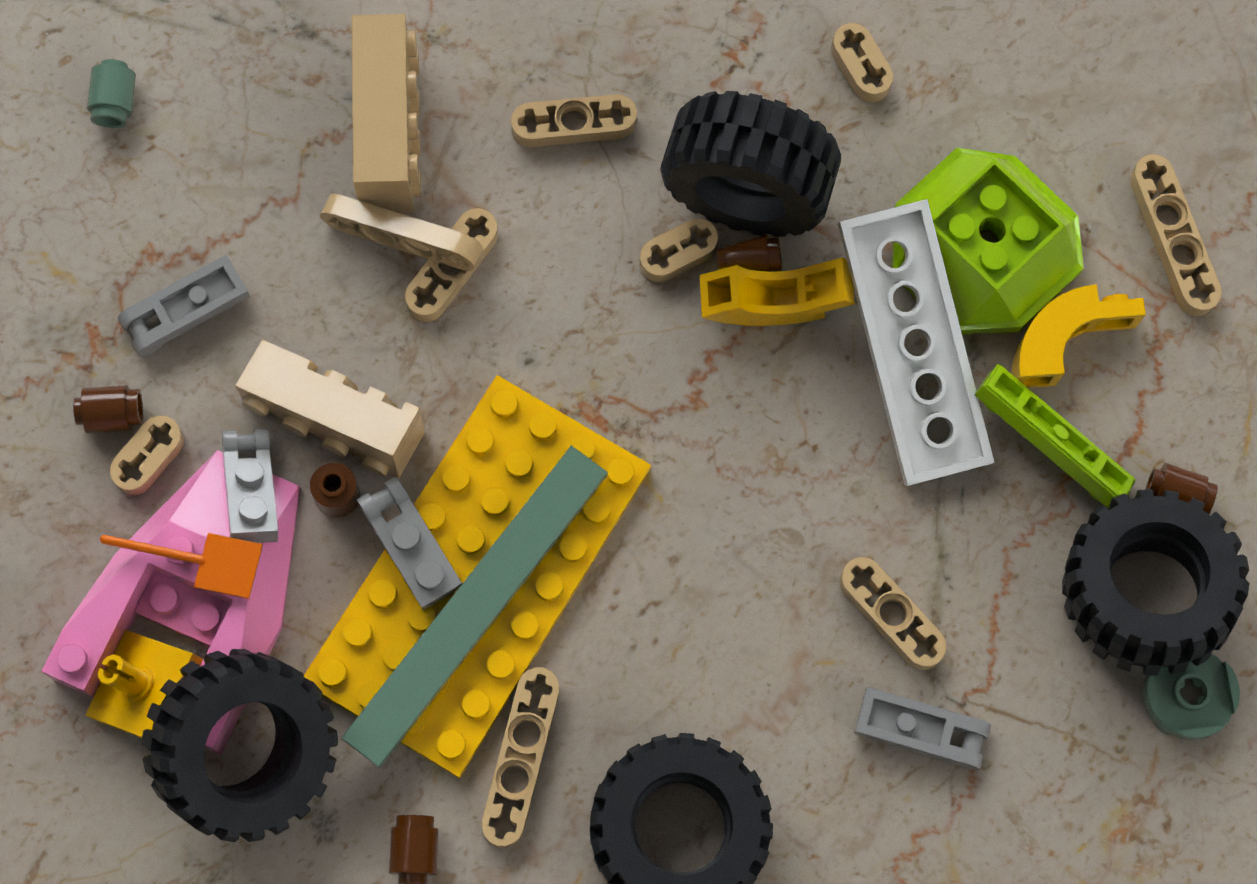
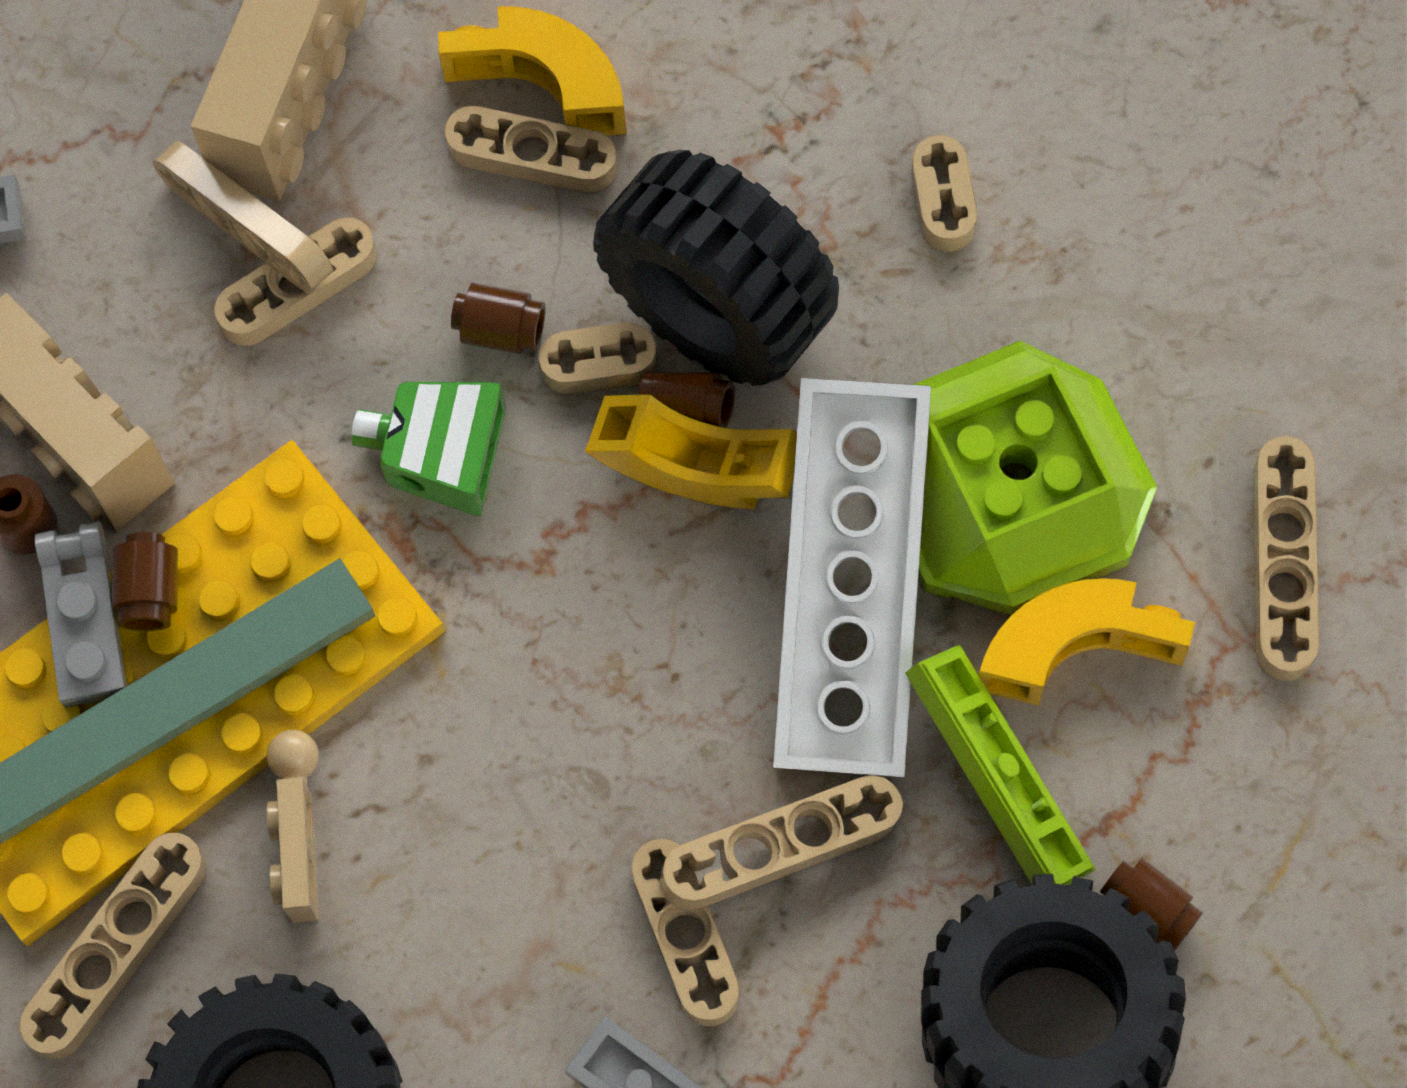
camera: 30 degrees right, 5 degrees down
(446, 506) = (145, 582): none -> reddish brown brick
(561, 51) = (544, 52): none -> yellow arch
(590, 590) = (290, 820): none -> tan plate
(597, 343) = (437, 440): none -> bright green torso
(603, 245) = (498, 318): none -> reddish brown brick
(932, 531) = (778, 835): none -> tan beam

